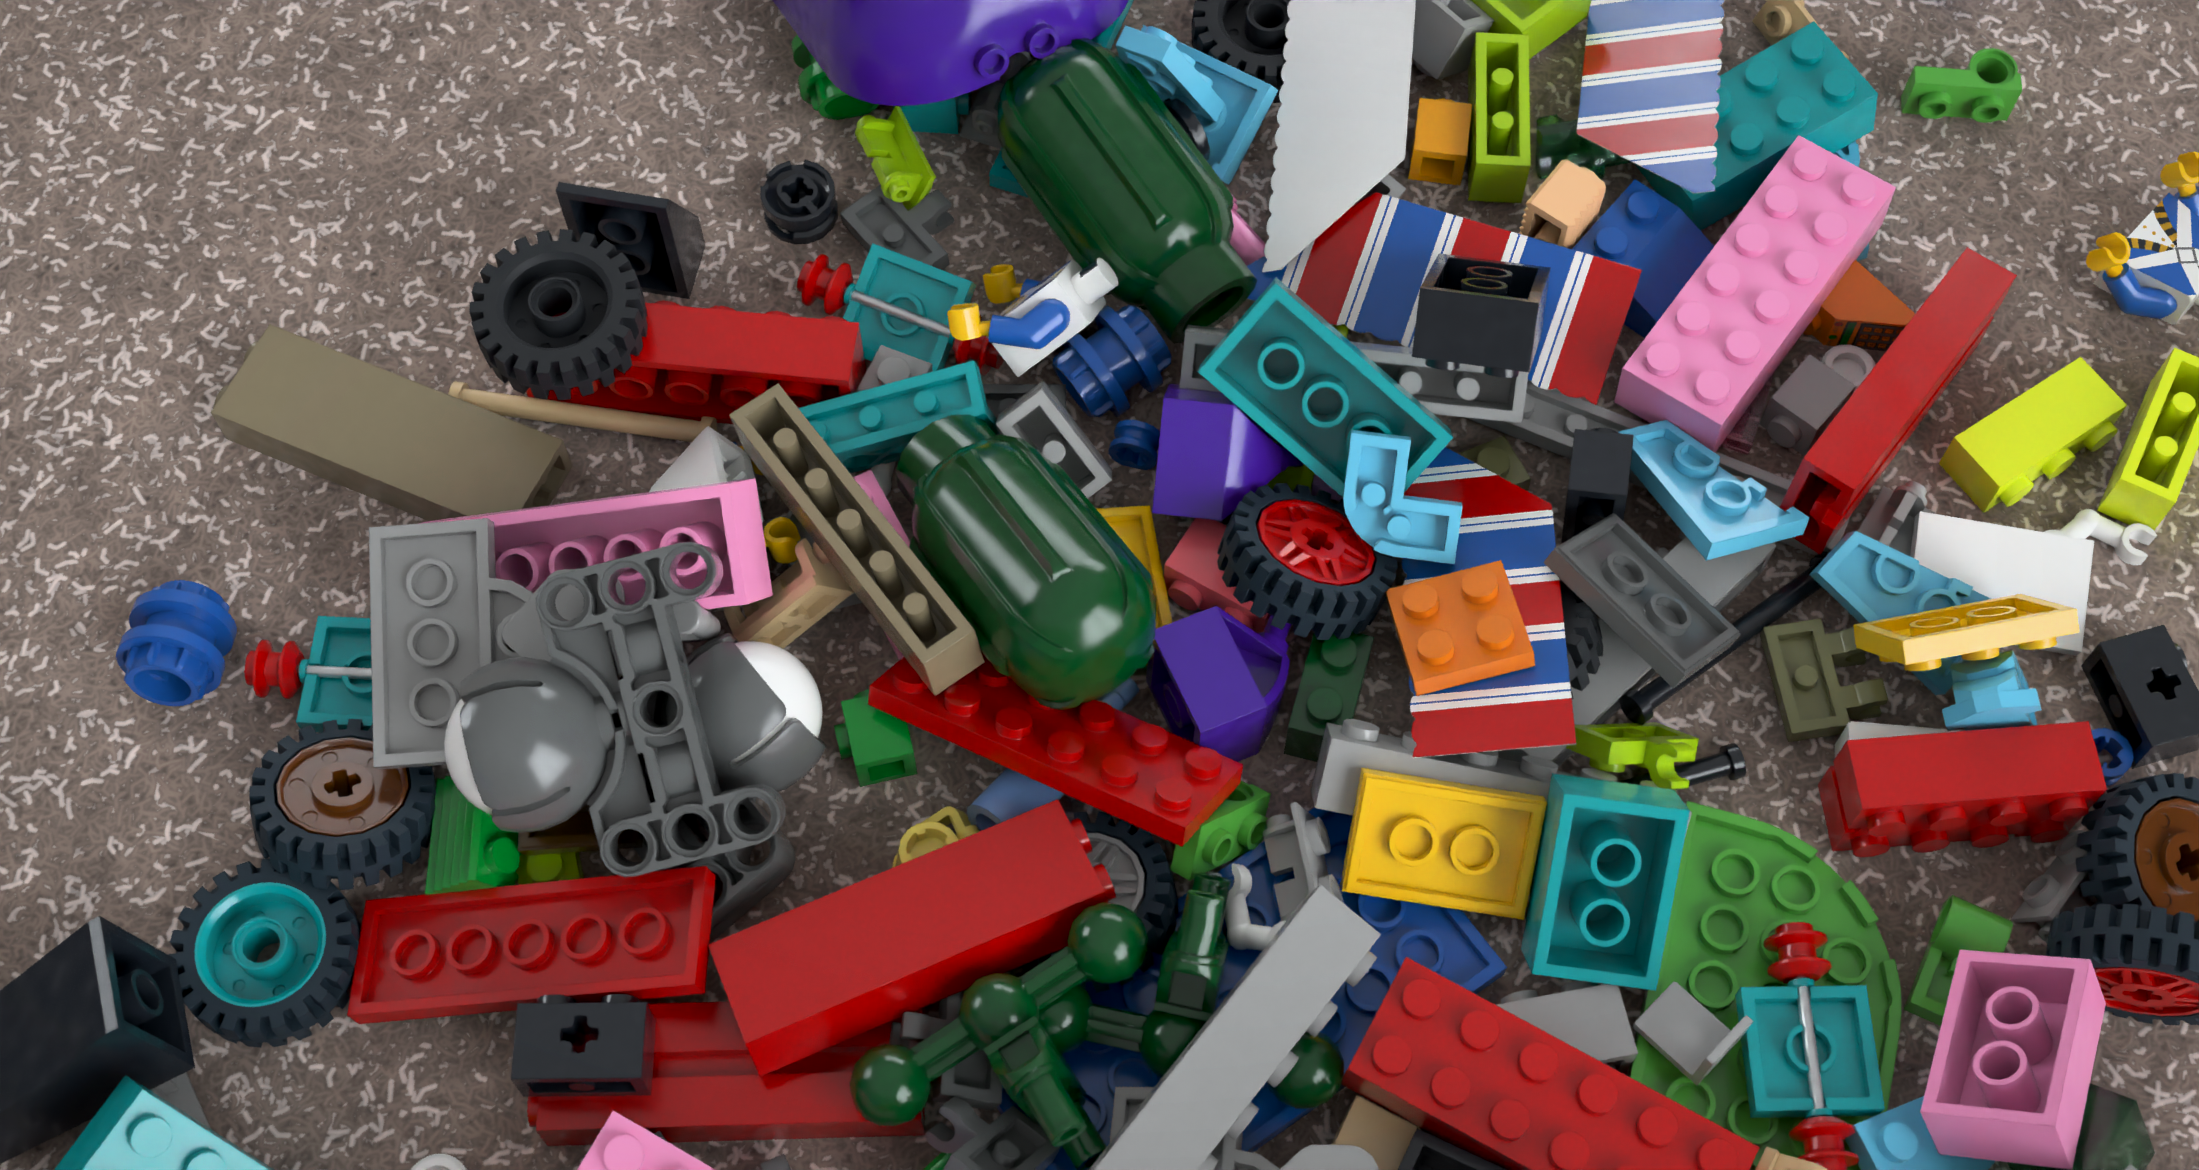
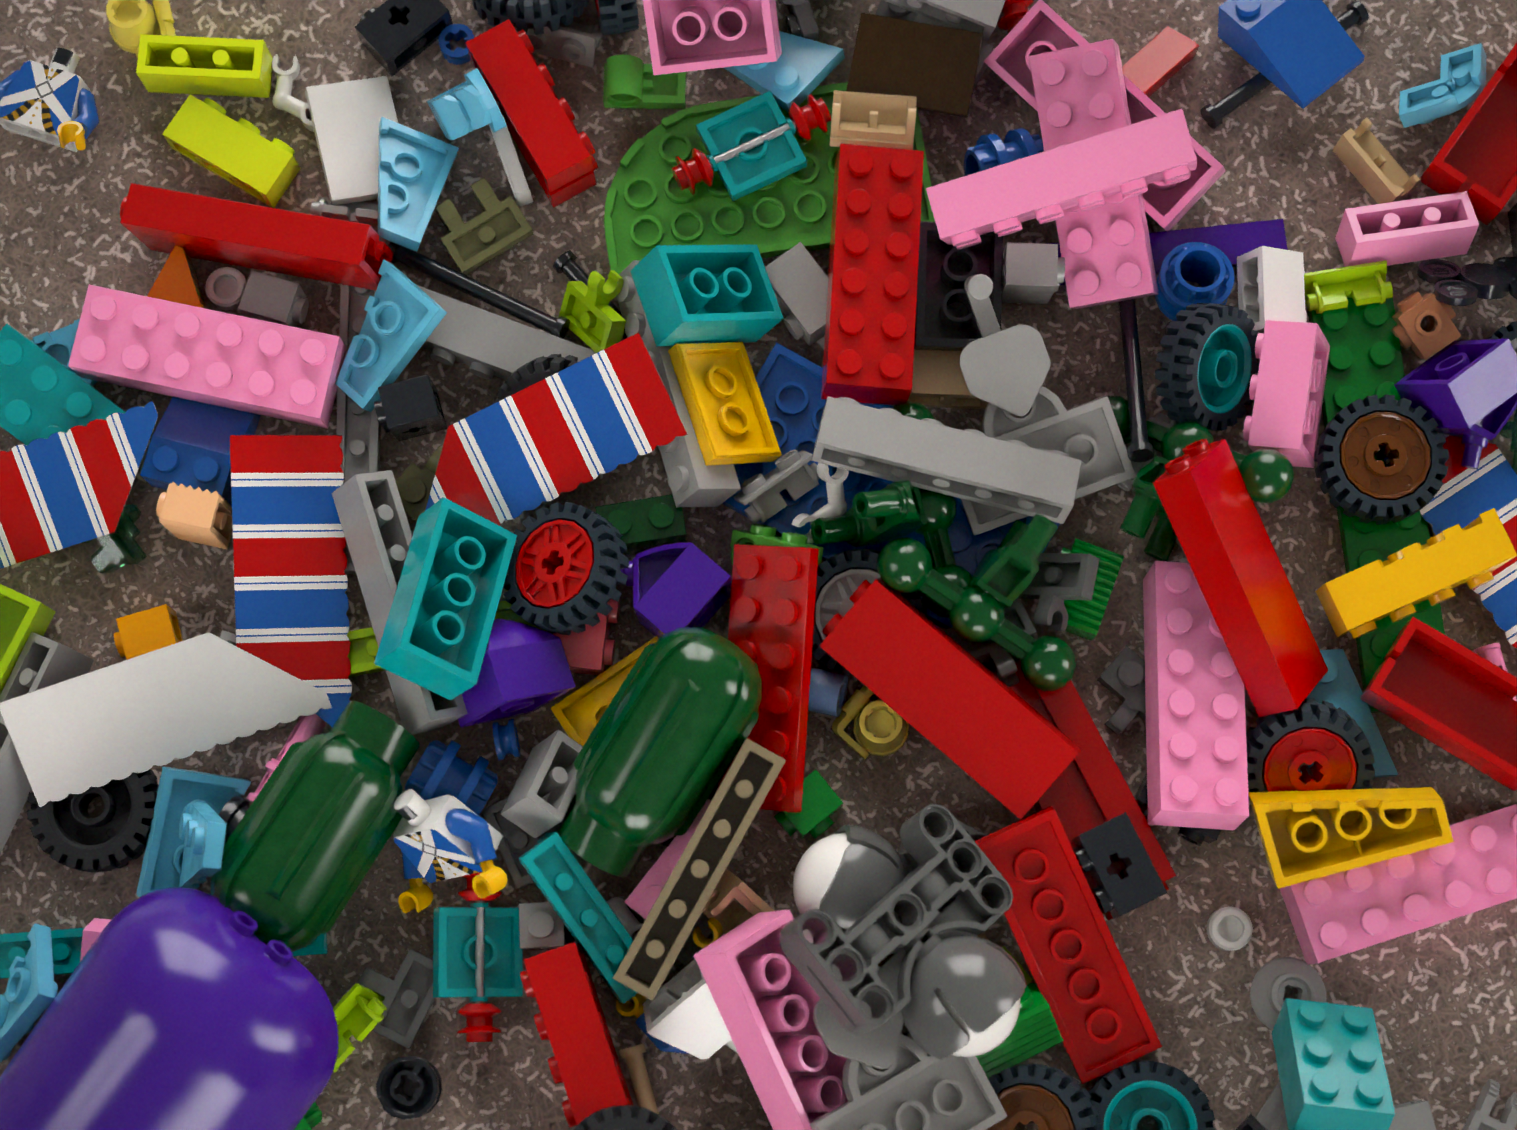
camera: 115 degrees left, 15 degrees up
(1381, 511) = (514, 519): medium azure plate -> none
(1459, 628) = (578, 443): orange plate -> none
(1481, 315) = (330, 517): black brick -> none
(1499, 118) = (97, 602): lime brick -> none
(1642, 599) = (496, 342): dark grey tile -> none
(1688, 1032) = (774, 213): light grey bracket -> none
(1966, 630) = (428, 136): yellow plate -> none

